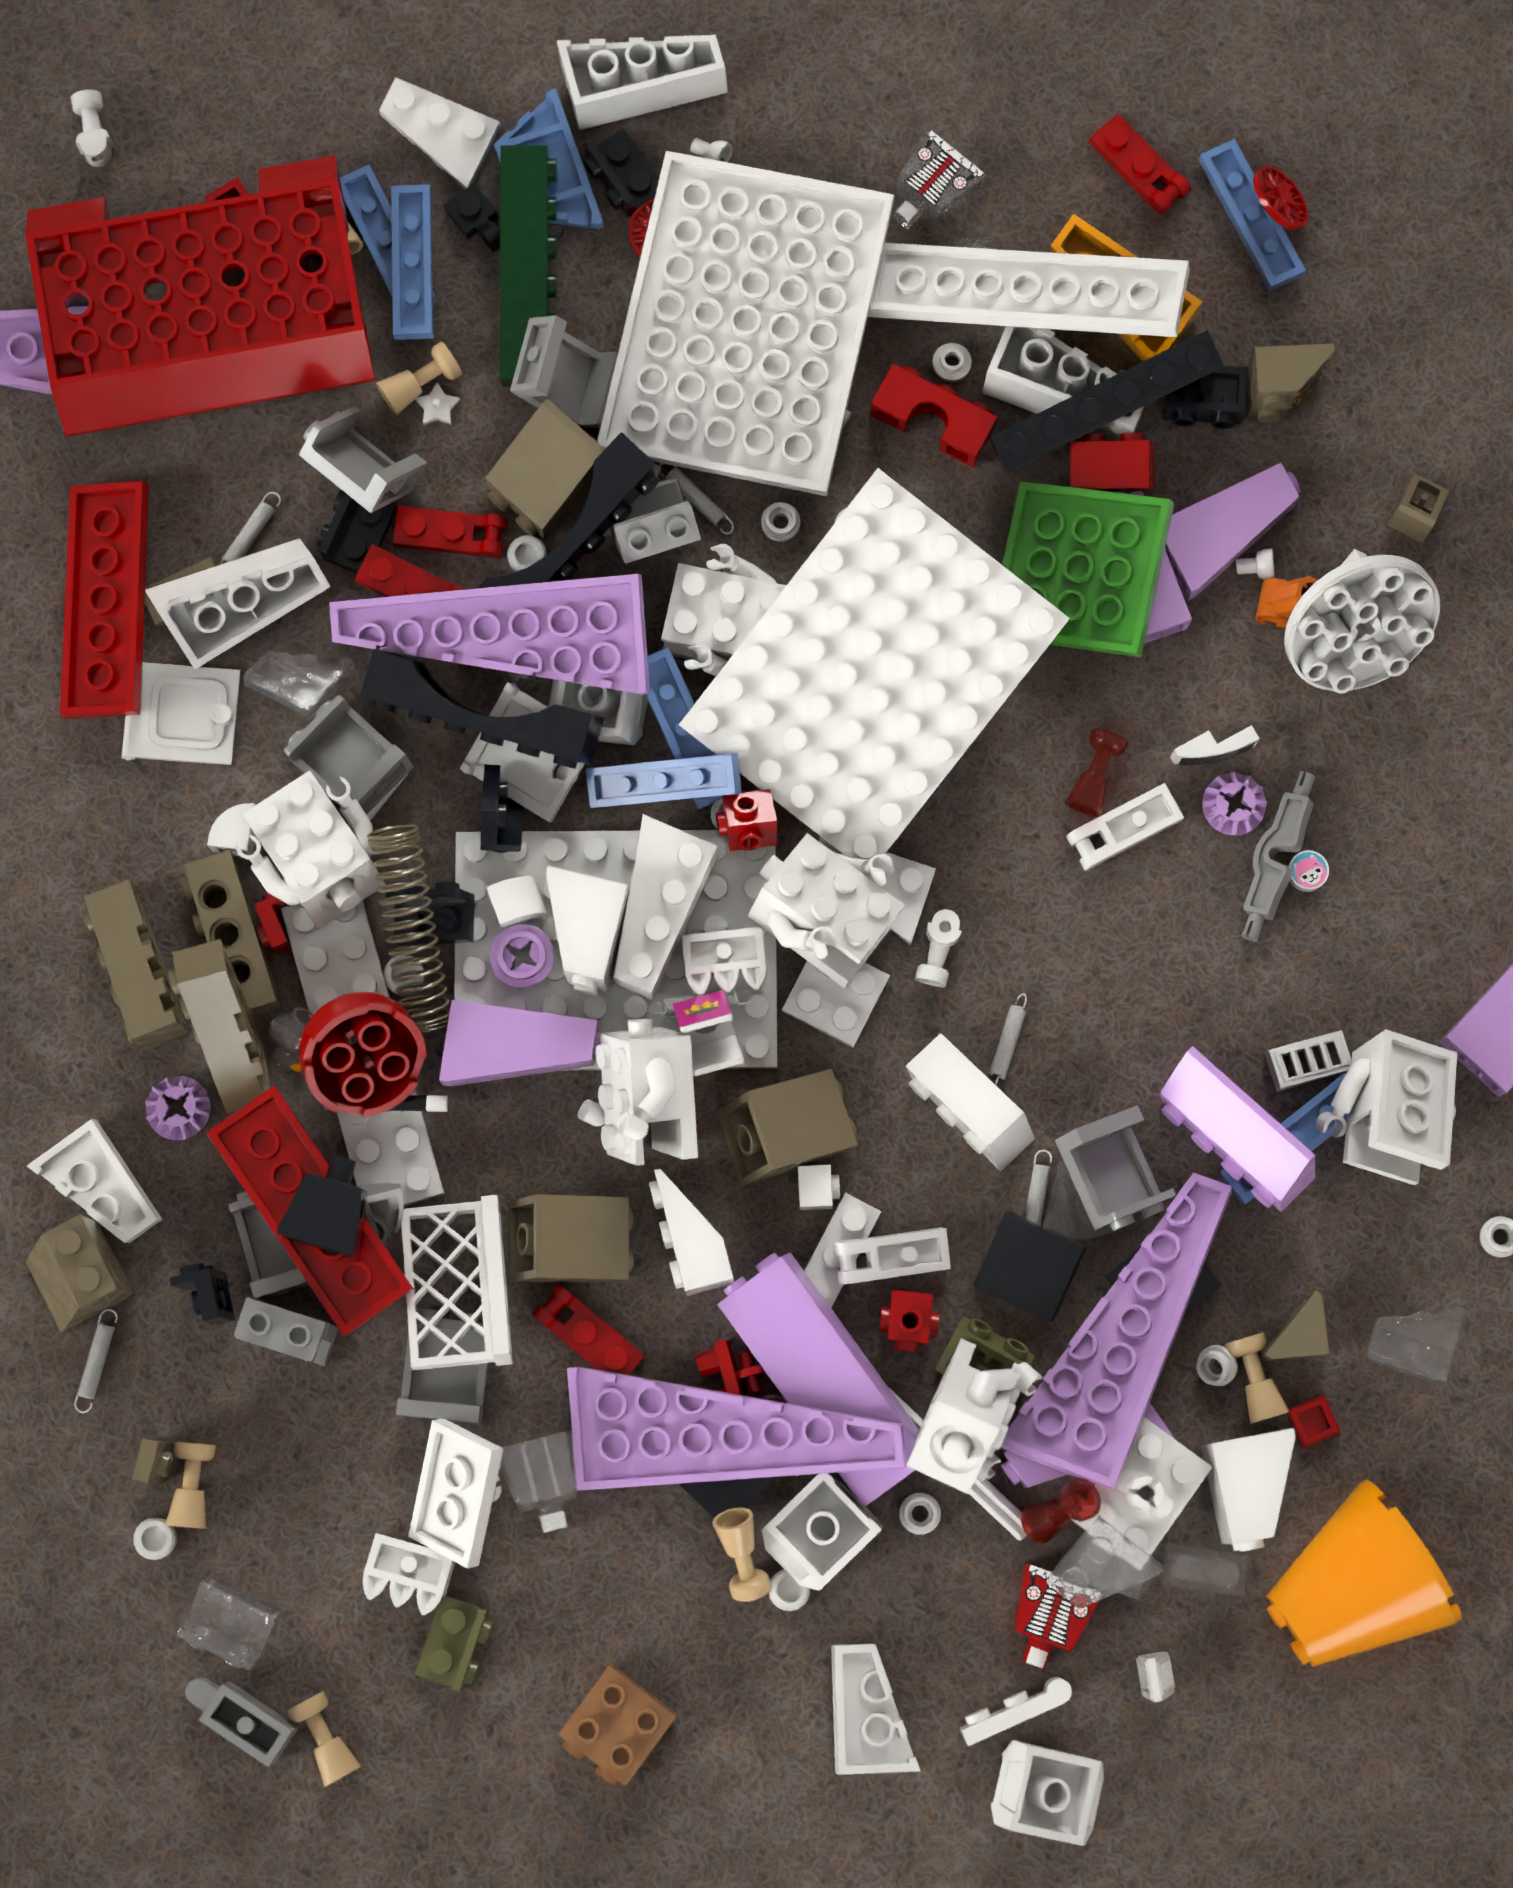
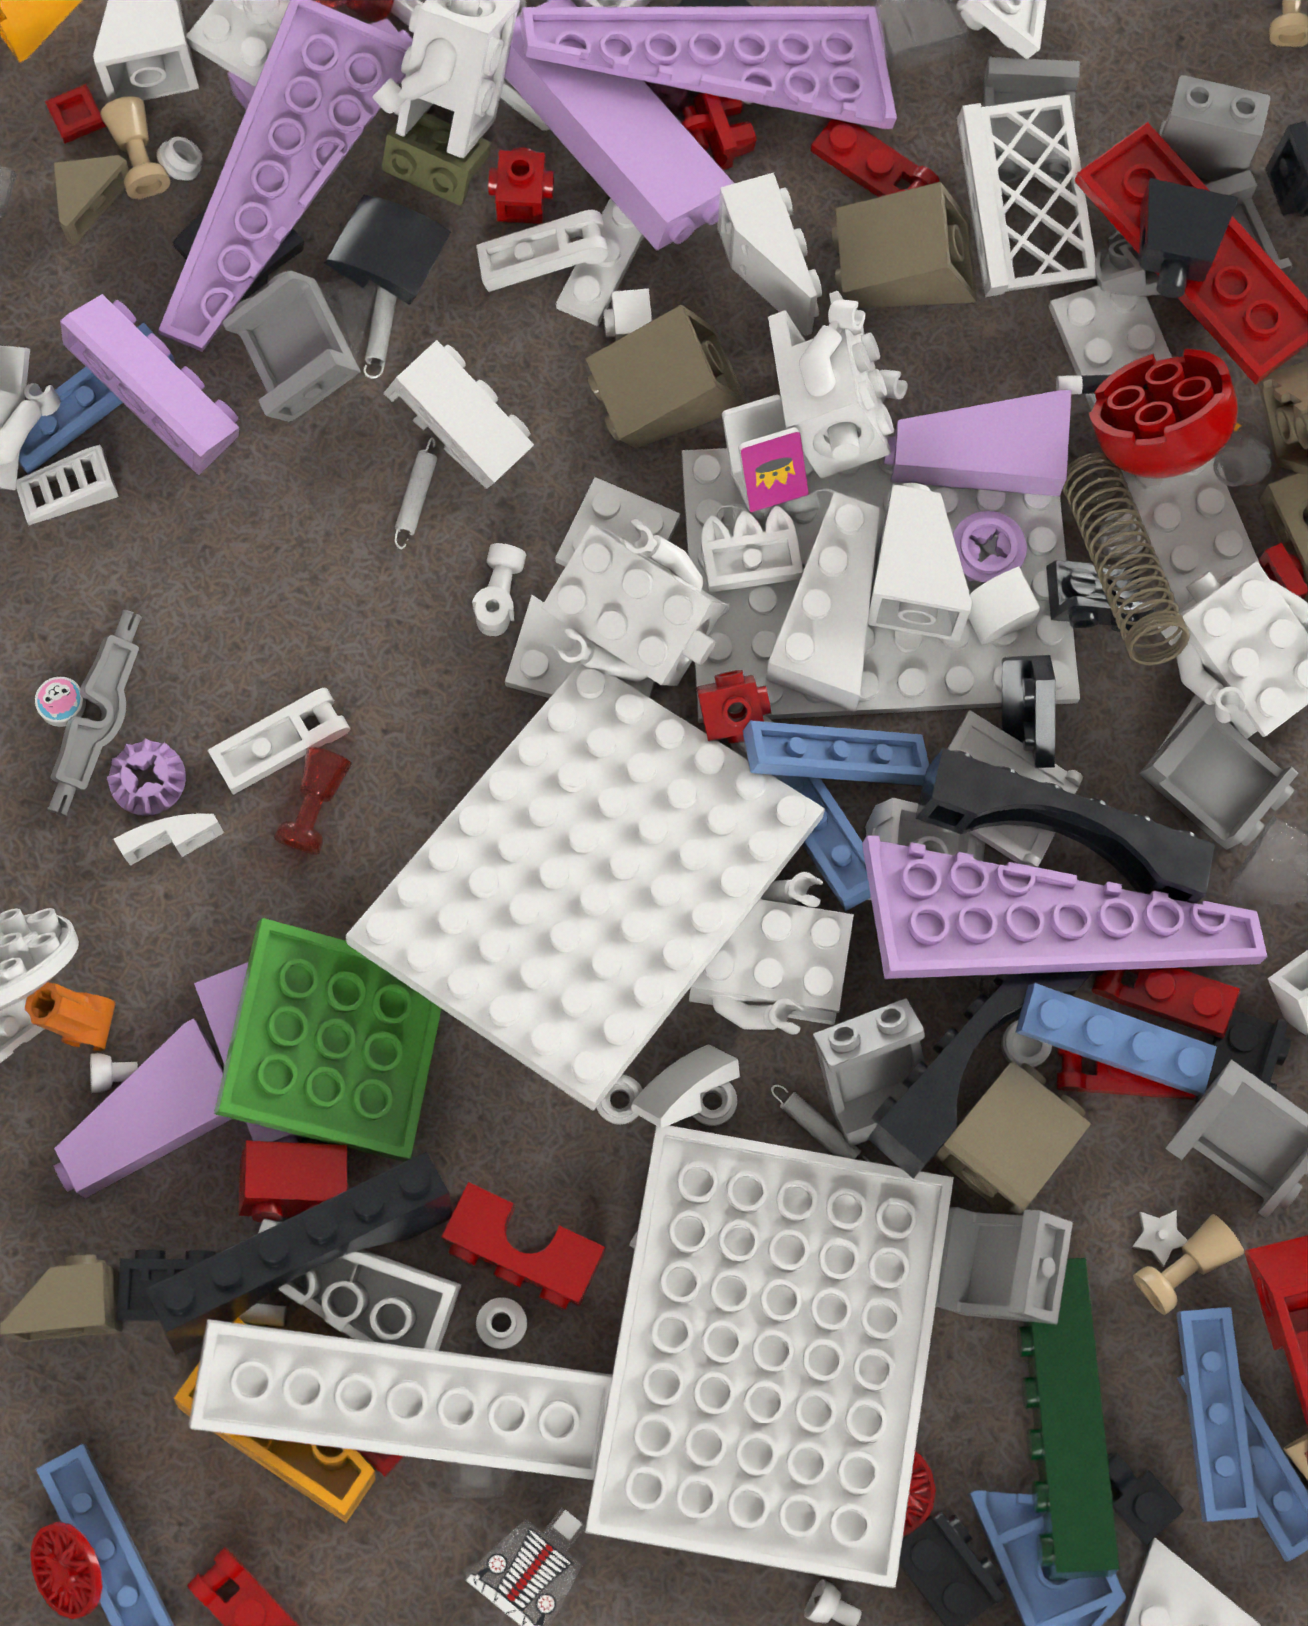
camera: 175 degrees right, 5 degrees down
(459, 538) = (1116, 1039): none -> medium blue plate
(806, 525) = (677, 1089): none -> white slope

